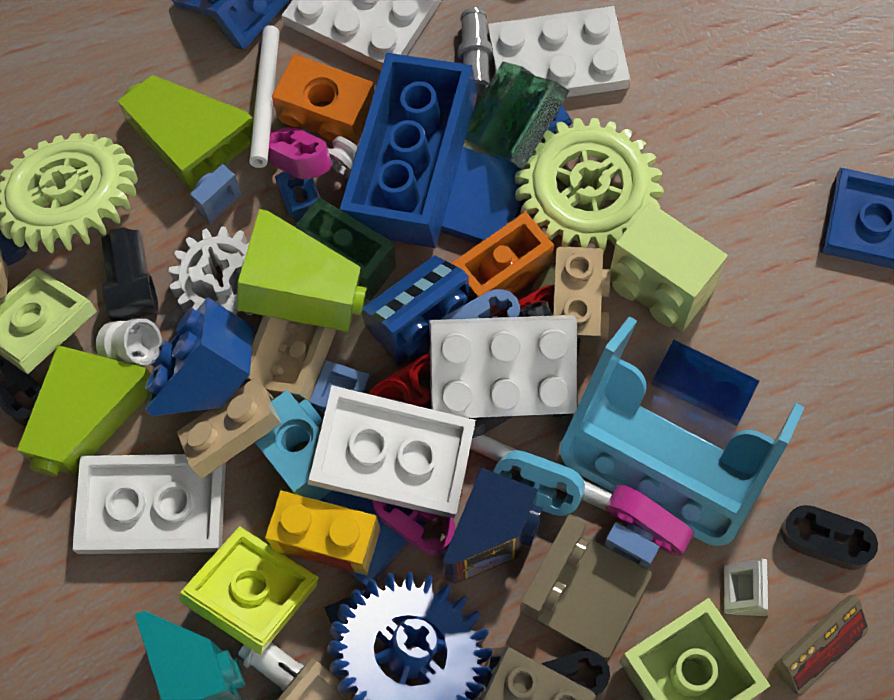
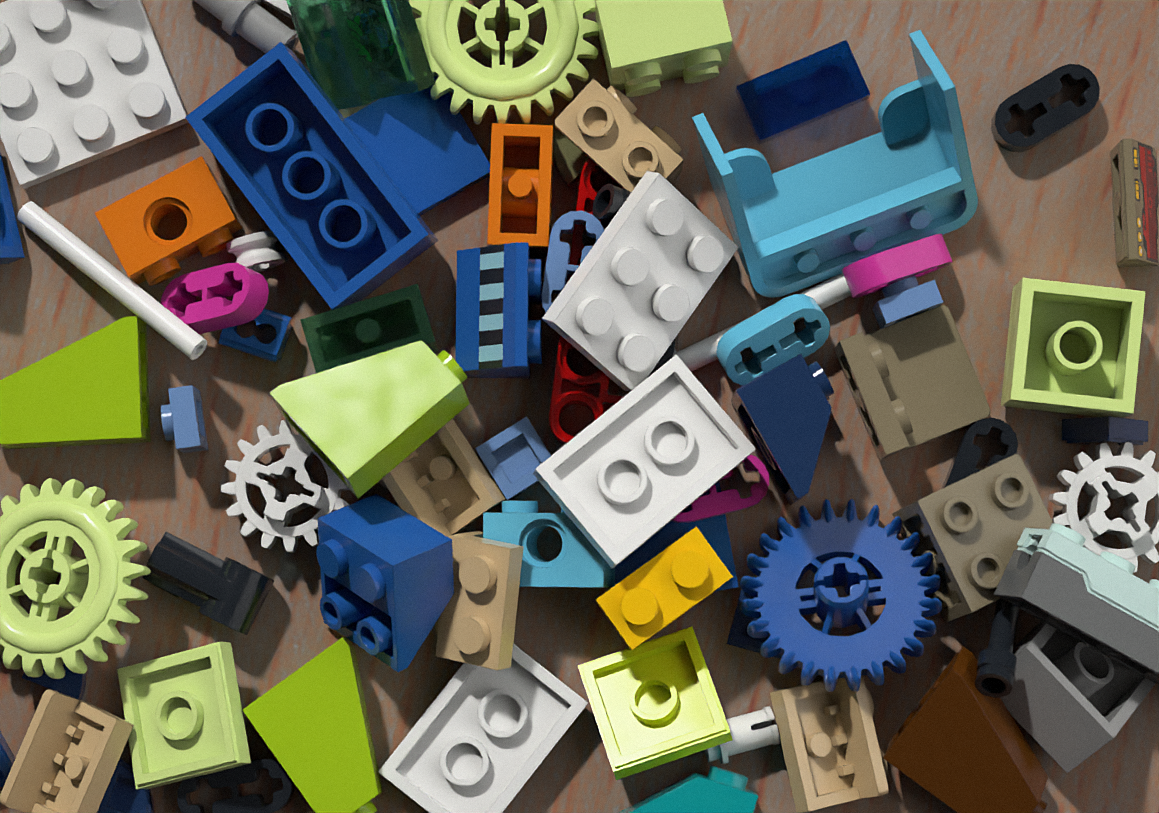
camera: 50 degrees left, 15 degrees up
(129, 341) = (293, 634): white wheel -> none
(746, 588) = (1029, 228): white slope -> none

